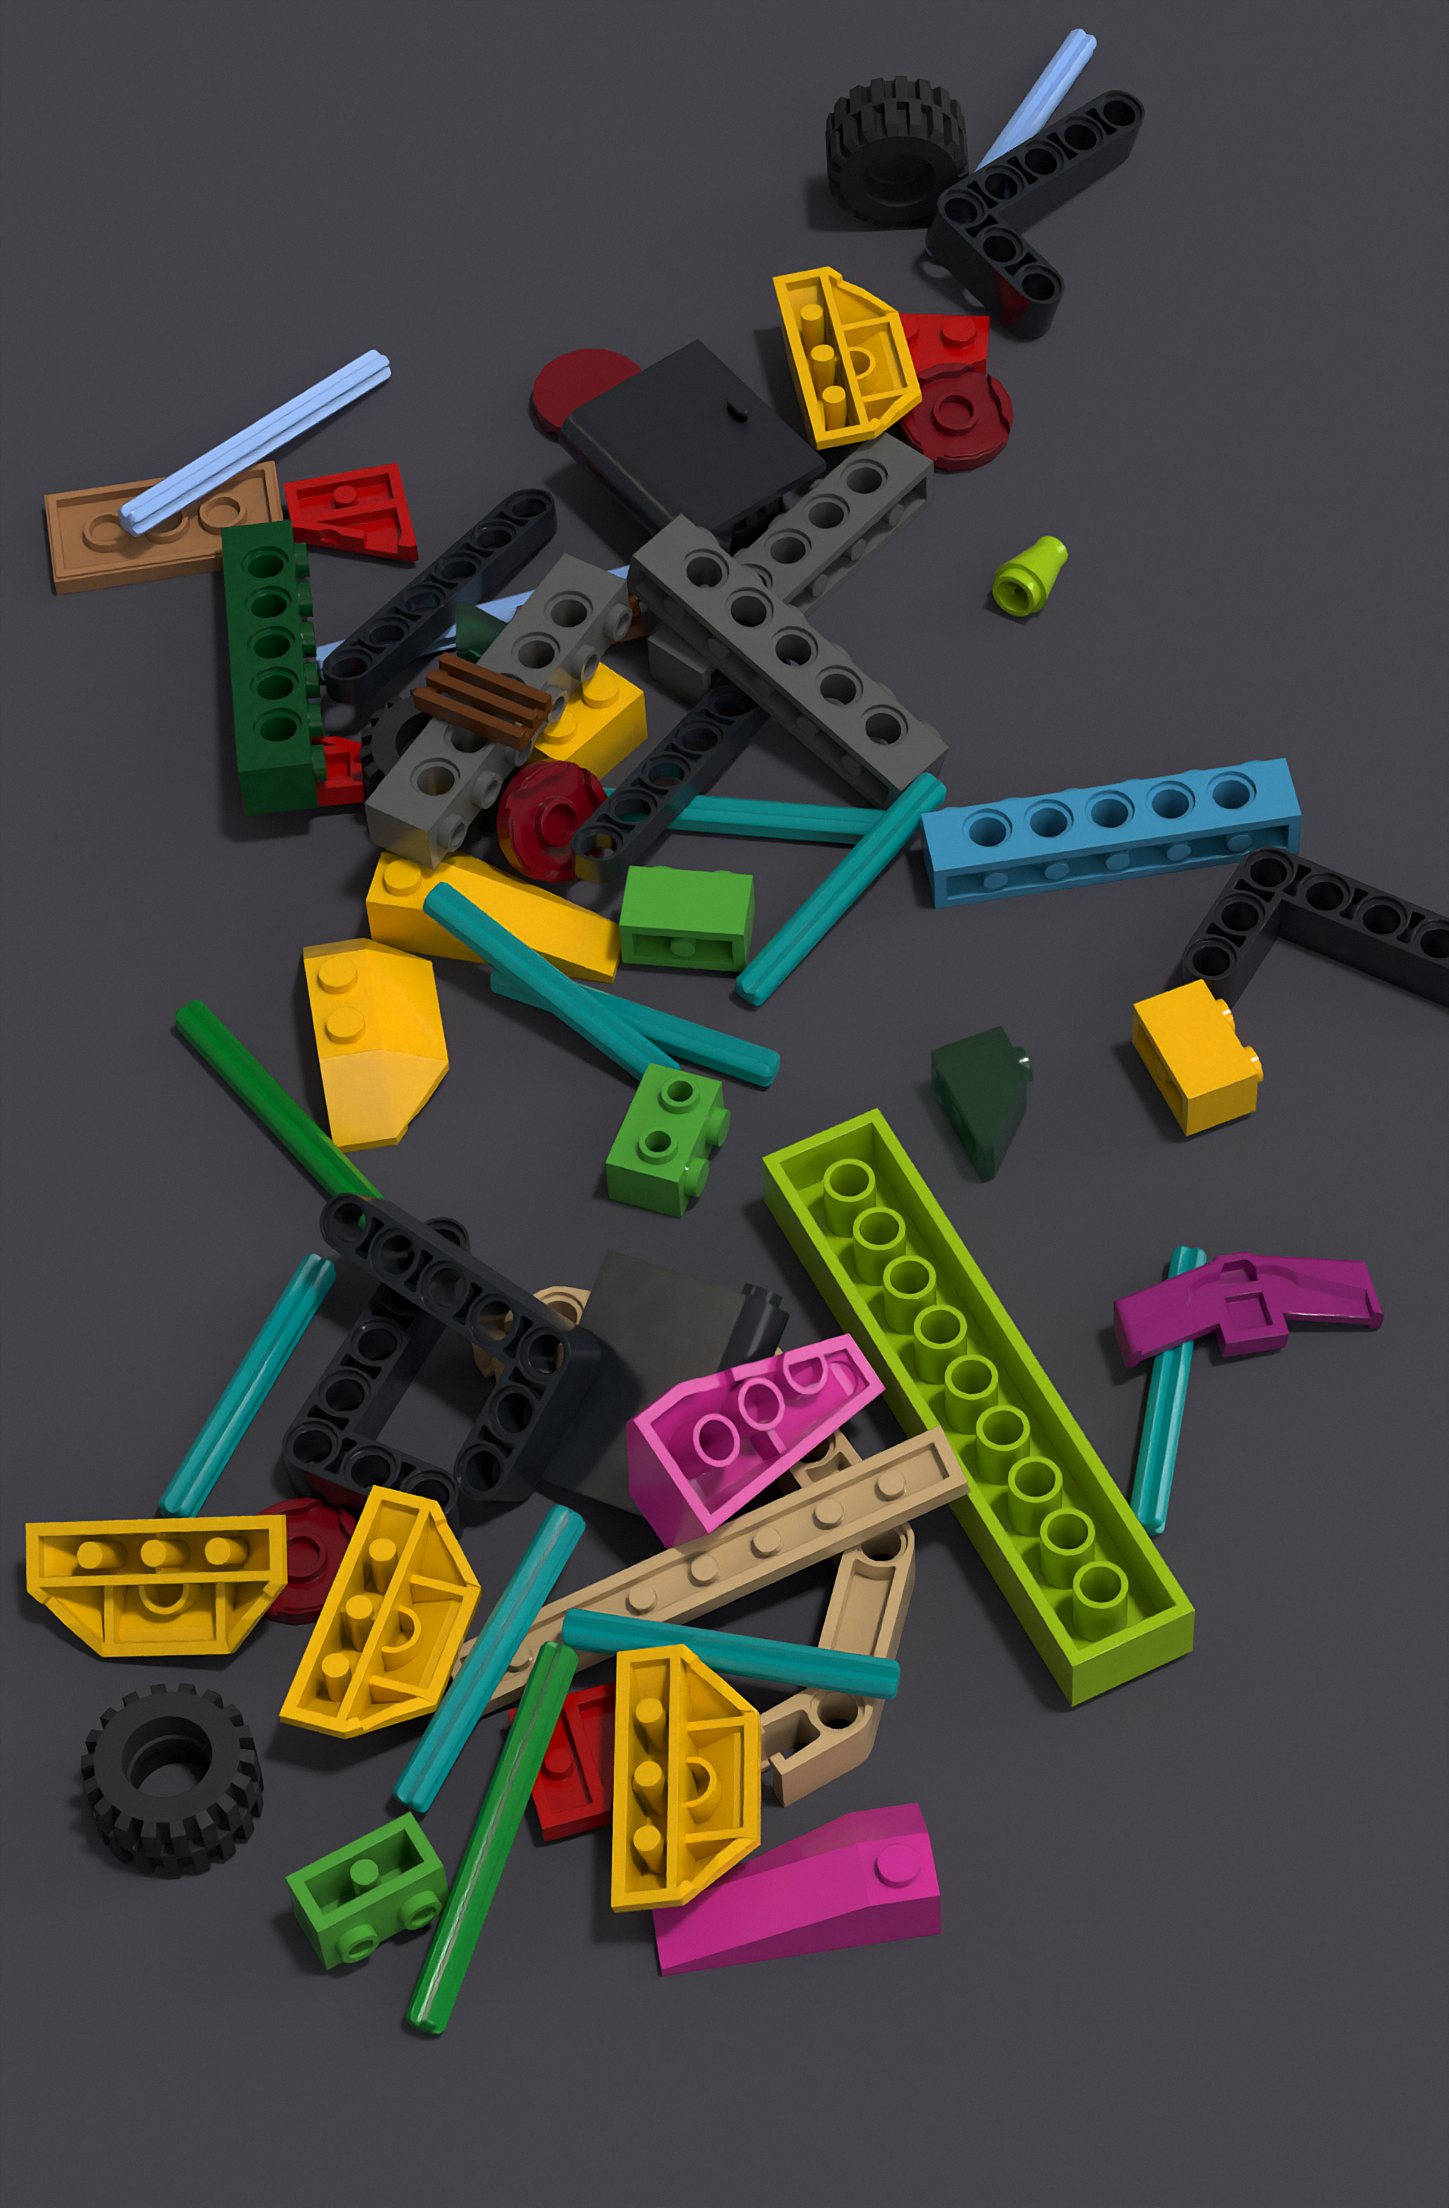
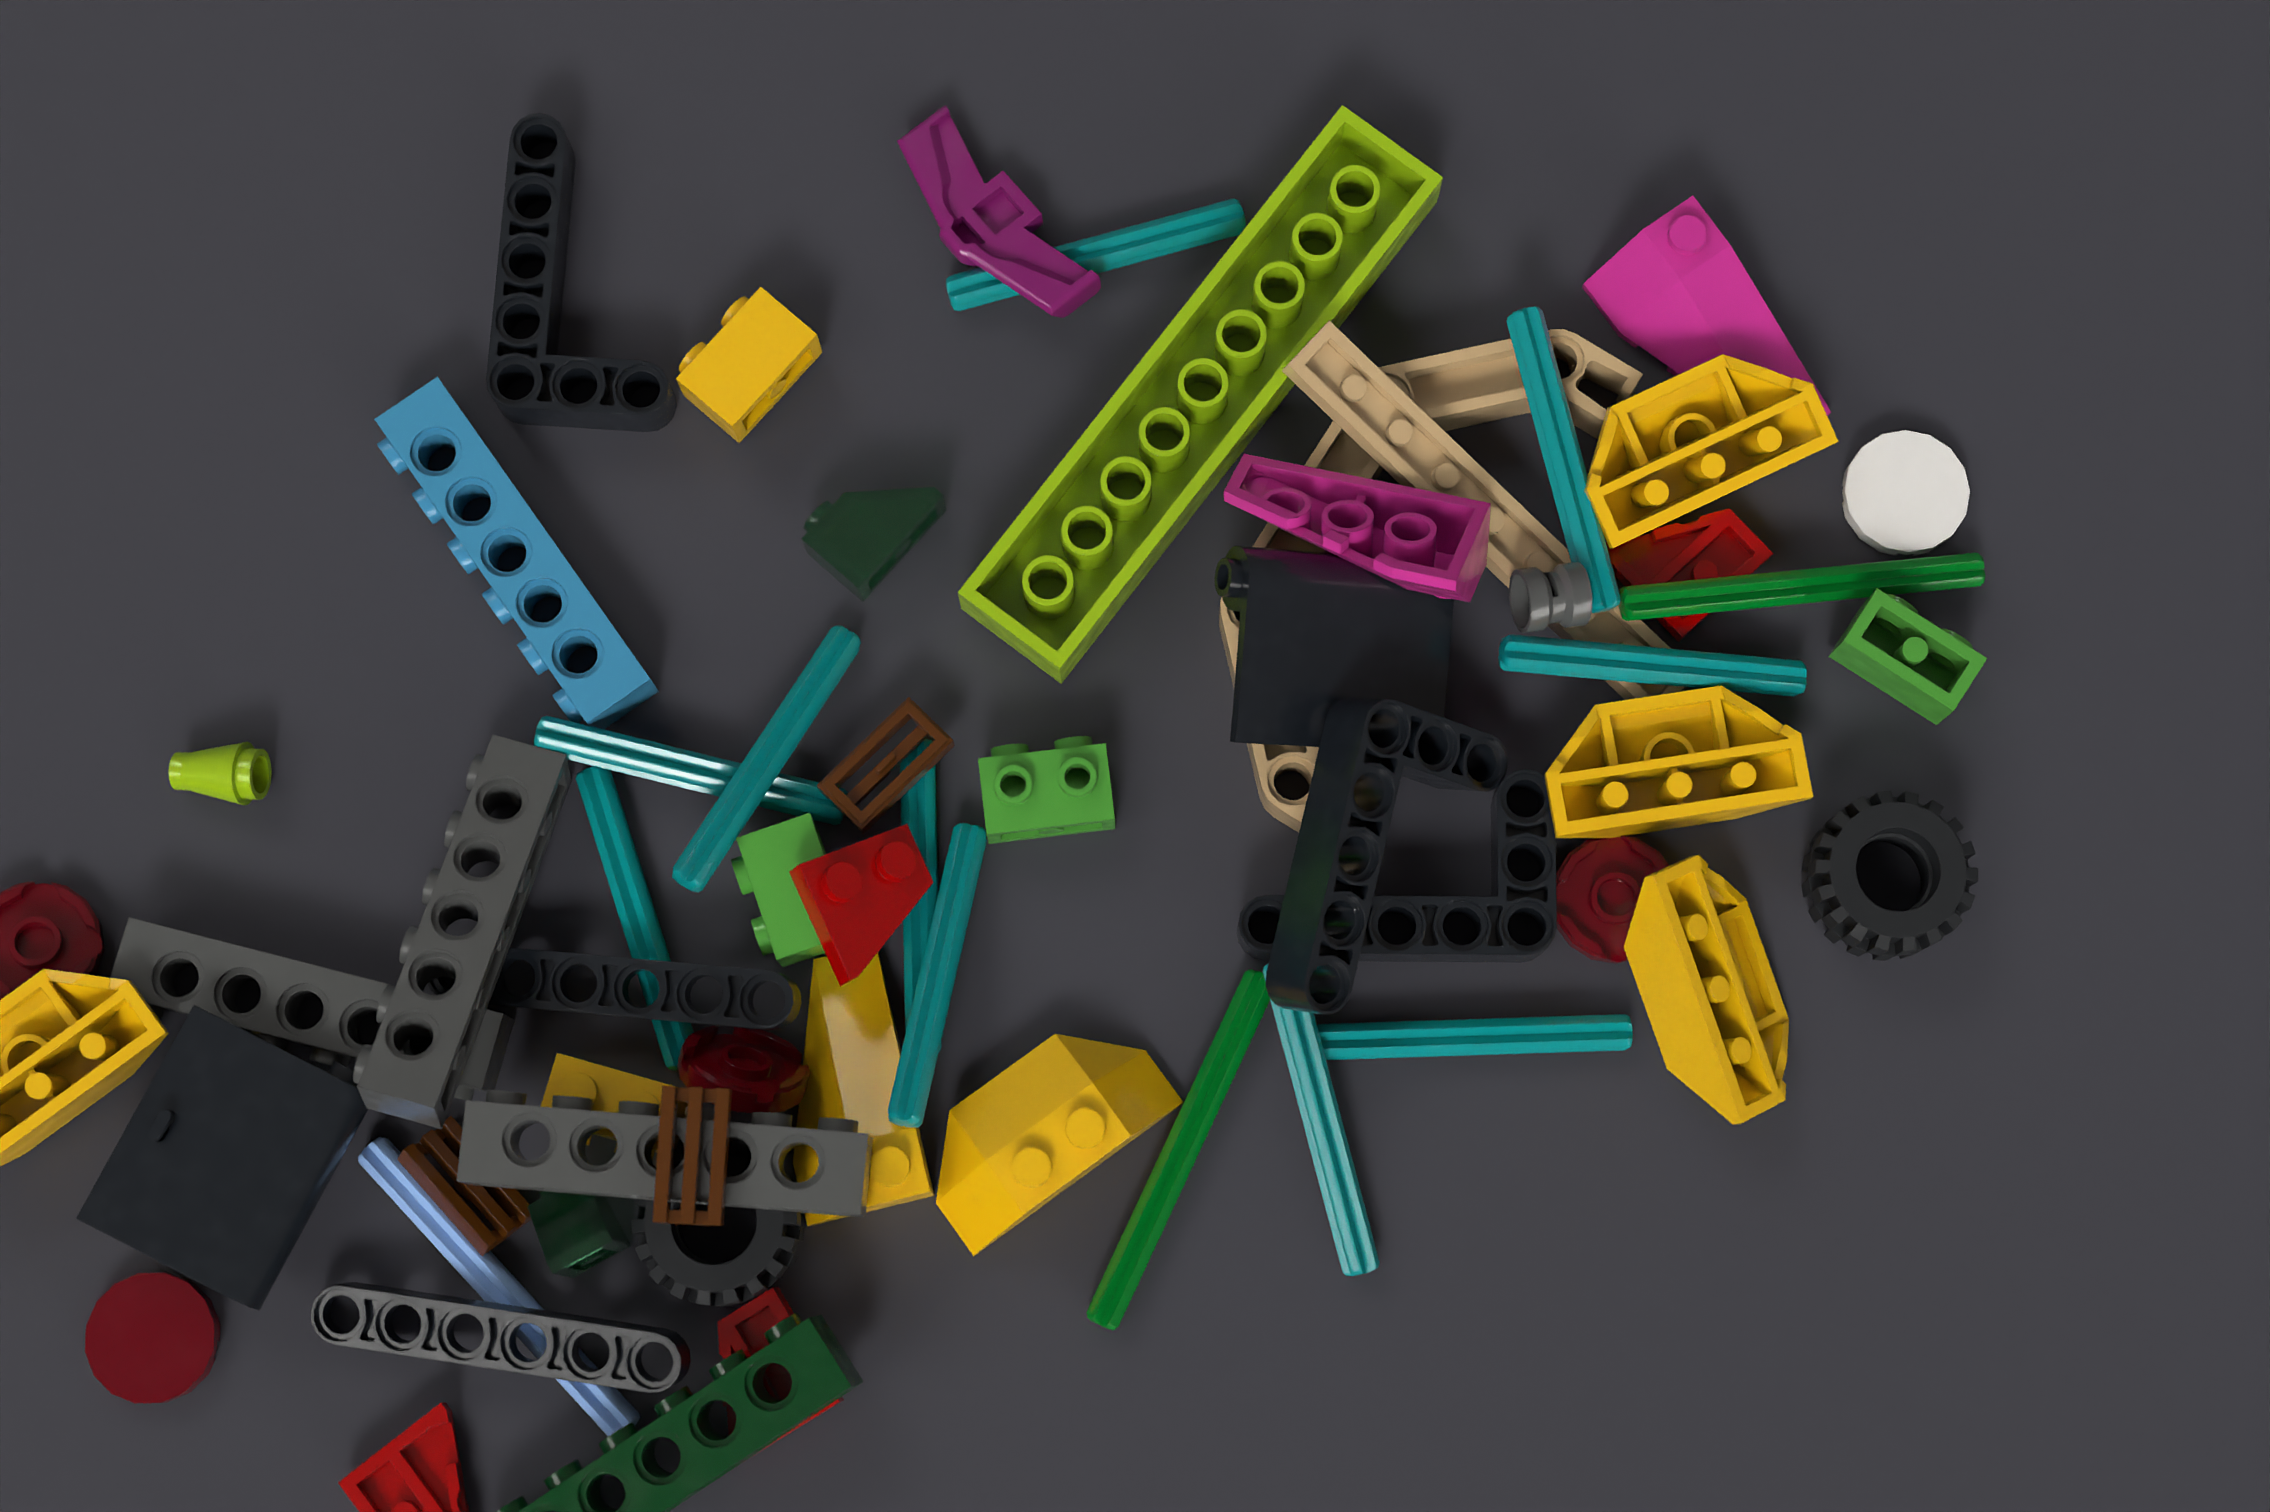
camera: 120 degrees left, 25 degrees up
(214, 1229) = (1327, 1140): none -> teal axle
(539, 1997) = (1905, 493): none -> white tile
(597, 1569) = (1550, 597): none -> dark grey wheel
(647, 944) = (861, 896): none -> red wing
(773, 1061) = (903, 782): none -> reddish brown tile
(817, 936) = (766, 759): none -> teal axle

